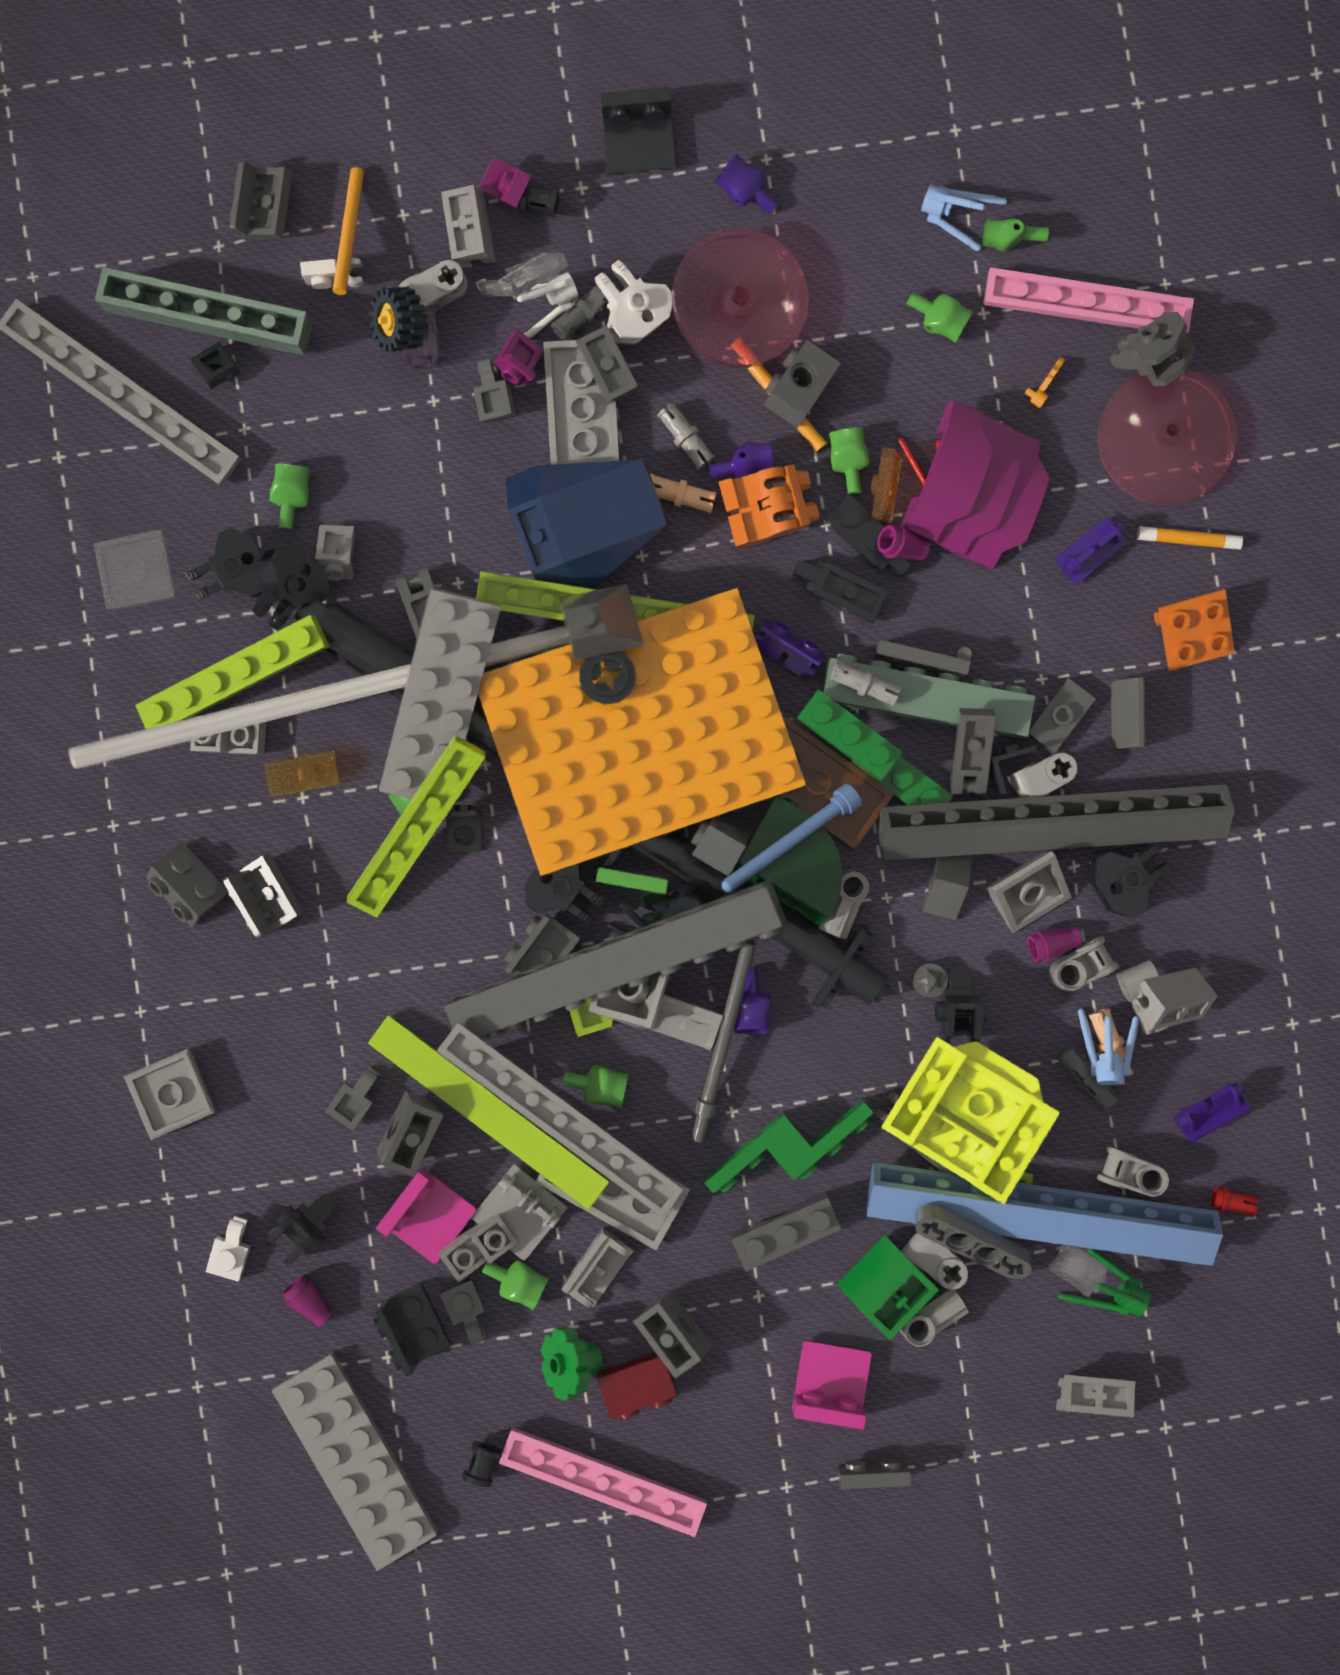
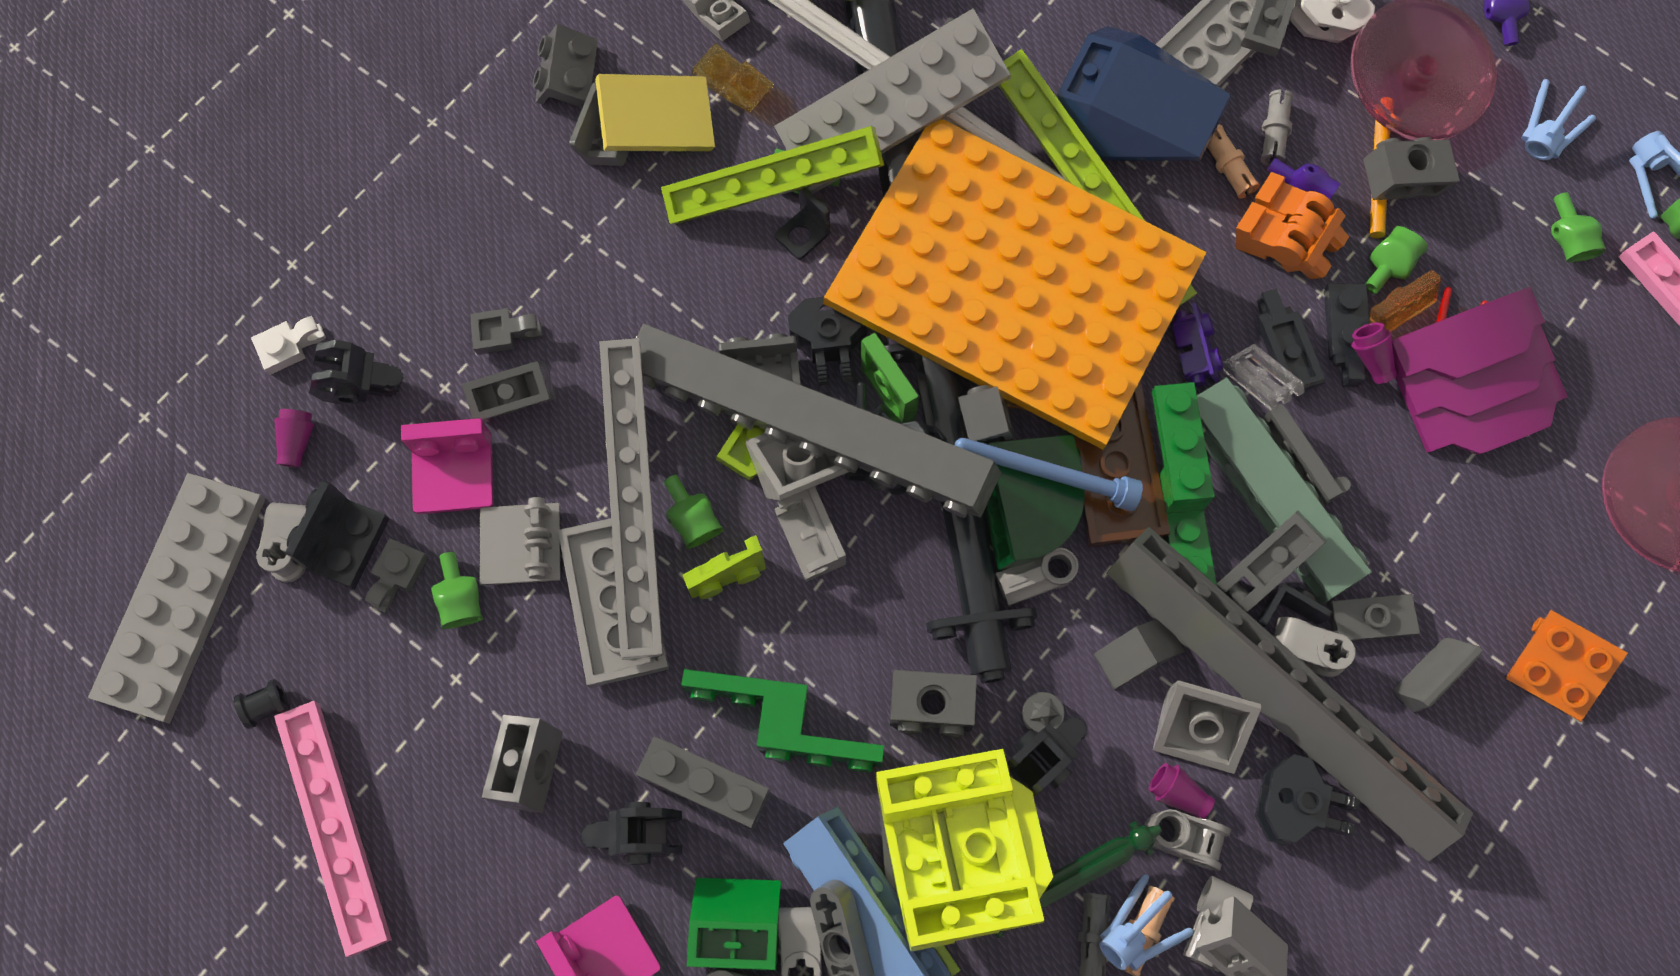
camera: 50 degrees right, 15 degrees down
(170, 1094) = (382, 191): light grey plate -> none
(287, 858) = (654, 113): none -> light yellow tile
(372, 1358) = (278, 523): none -> light grey piece
(476, 1246) = (457, 532): light grey slope -> none
(489, 1112) = (585, 447): lime tile -> none
(569, 1363) = (420, 697): green plant -> none
(597, 1268) = (526, 650): light grey hinge -> none
(600, 622) = (1072, 163): dark grey slope -> none
(601, 692) = (1027, 192): black gear -> none
(636, 1386) = (446, 775): dark red brick -> none
(657, 1113) = (724, 569): none -> lime wing
(706, 1105) = (753, 617): dark grey bar -> none
(754, 1008) = (874, 579): dark purple piece -> none
(779, 1301) = (634, 833): none -> black hinge
(842, 1048) = (954, 690): none -> dark grey brick
(862, 264) = (1547, 139): none -> light blue plant
(865, 682) = (1237, 418): light grey pin -> none
(873, 634) = (1256, 379): none -> clear tile
(1039, 397) = (1599, 363): light orange piece -> none
(1050, 1035) = (1098, 863): none -> dark green wheel
(1092, 550) = (1532, 517): dark purple hinge -> none
(1189, 537) = (1630, 591): light orange bar -> none

